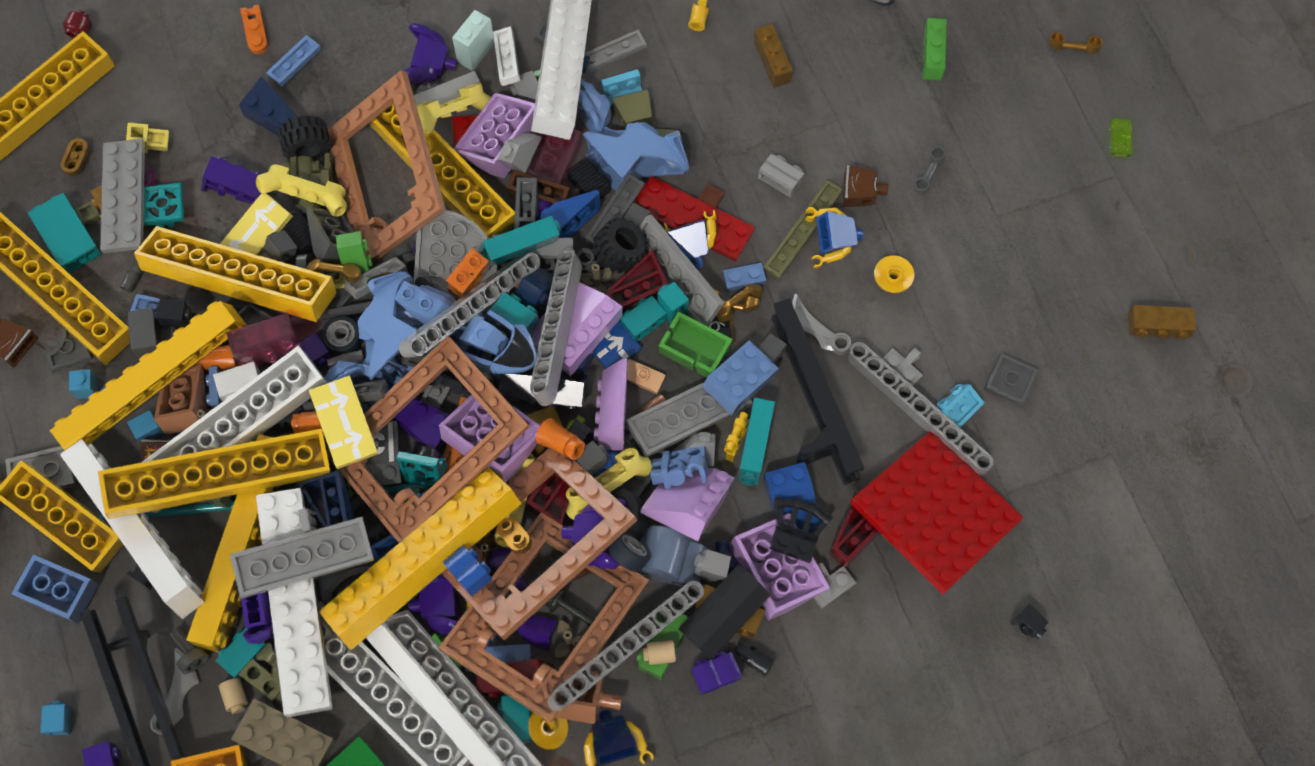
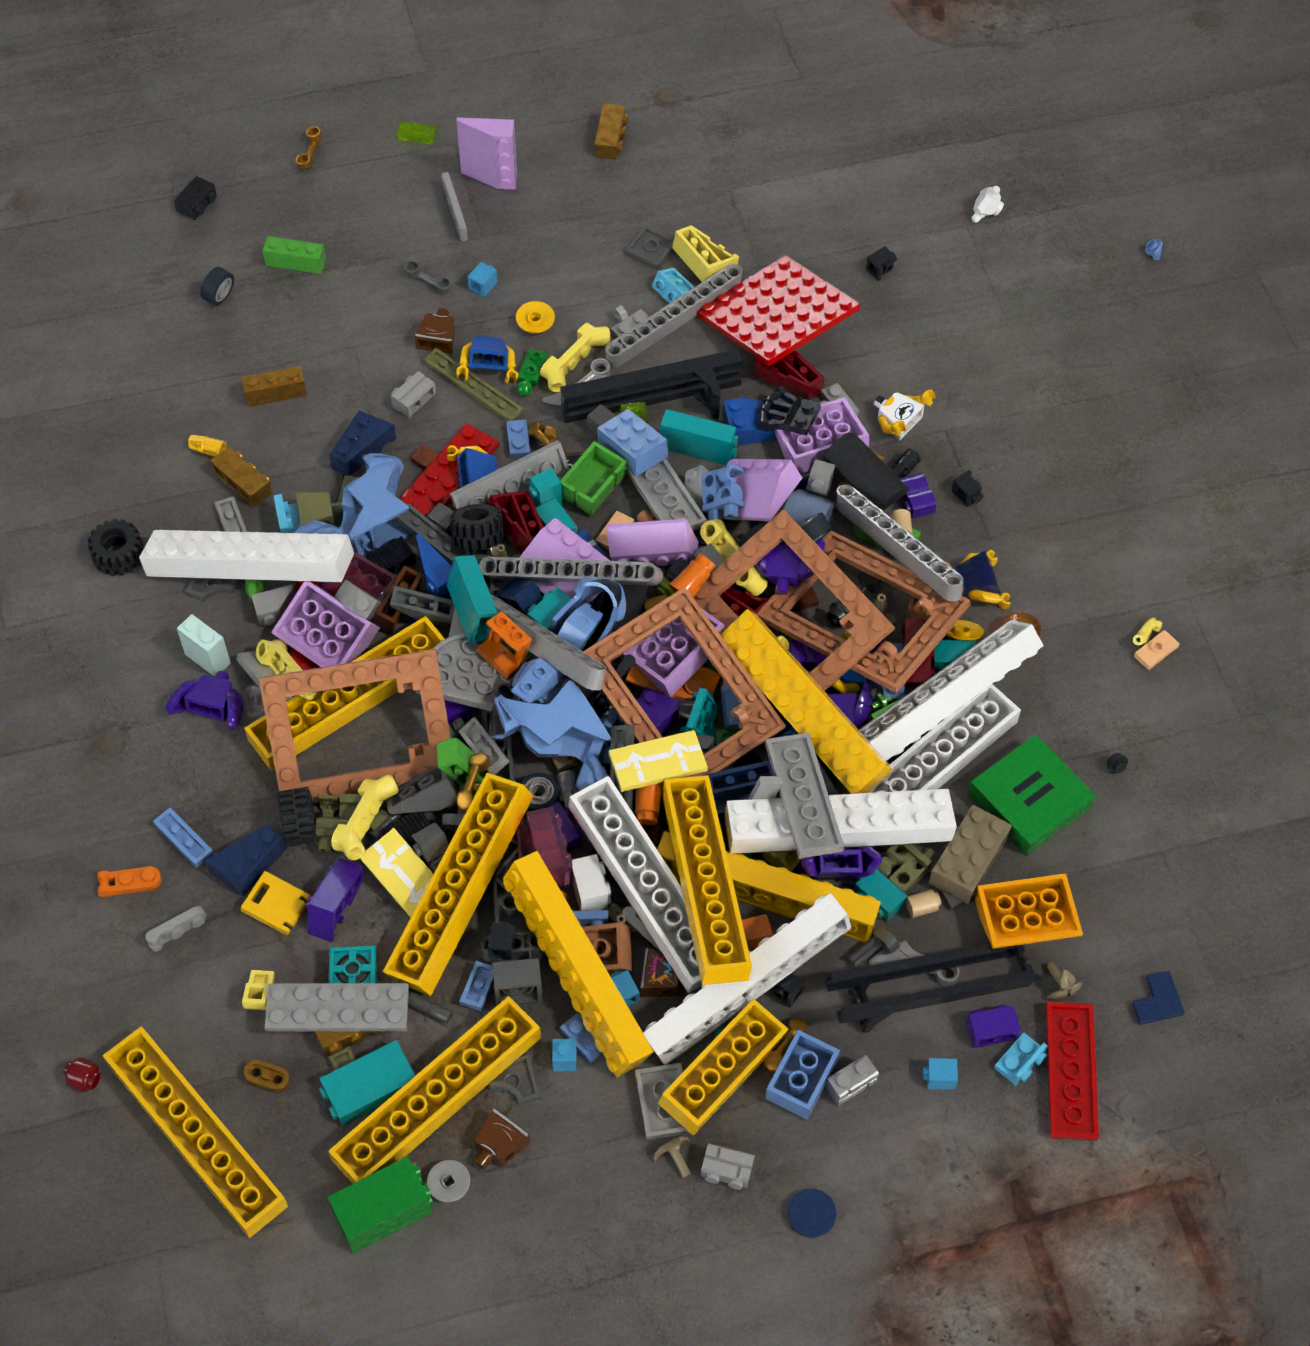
camera: 85 degrees left, 10 degrees down
(51, 635) = (851, 1080): none -> light grey brick
(108, 583) = (775, 1057): none -> pearl gold bar
(203, 539) = (756, 930): none -> orange brick
(206, 68) = (175, 927): none -> light grey plate
(232, 142) = (279, 904): none -> yellow container
(467, 570) = (823, 656): blue brick -> none
(506, 56) = (235, 616): white plate -> none
(513, 534) = (790, 621): pearl gold plate -> none
(667, 45) = (241, 476): none -> pearl gold brick
(717, 136) = (363, 436): none -> dark blue wedge
(730, 728) = (967, 489): none -> black brick
(735, 439) = (689, 454): yellow plate -> none
(790, 385) = (637, 408): none -> clear neon green tile
(820, 650) = (901, 412): none -> torso
(827, 279) = (530, 371): none -> green plate
(829, 300) = (587, 338): none -> light yellow plate
(935, 220) = (482, 279): none -> dark azure brick
(1002, 430) = (700, 253): none -> light yellow wedge
(1025, 182) = (454, 206): none -> light grey tile
(1089, 202) = (488, 151): none -> lavender slope
(1141, 741) = (987, 203): none -> white rock

